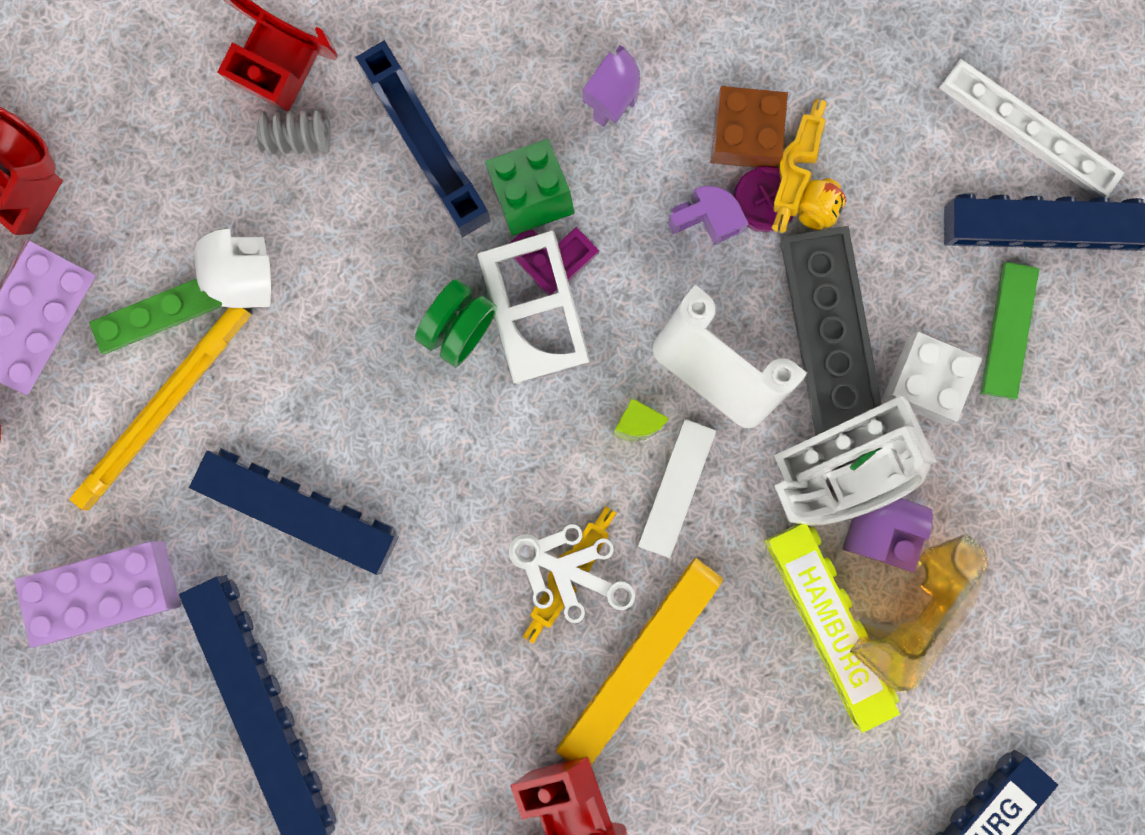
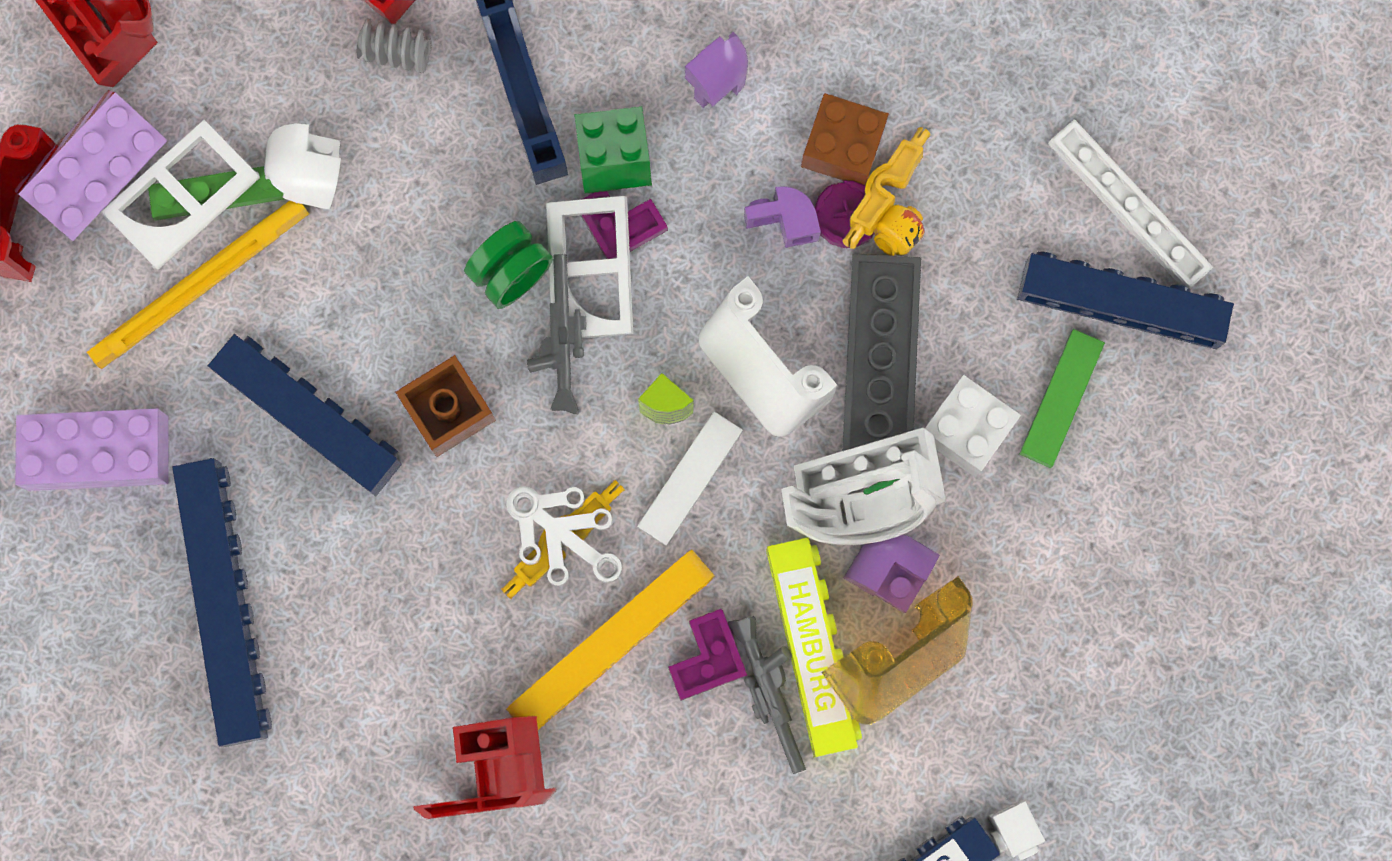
camera: 10 degrees right, 5 degrees down
(116, 377) = (162, 243): none -> white window
(427, 474) = (445, 406): none -> dark orange brick
(524, 375) = (564, 331): none -> dark grey piece
(744, 659) = (718, 659): none -> magenta plate
(799, 680) = (768, 695): none -> dark grey piece
(1063, 755) = (1016, 831): none -> white brick

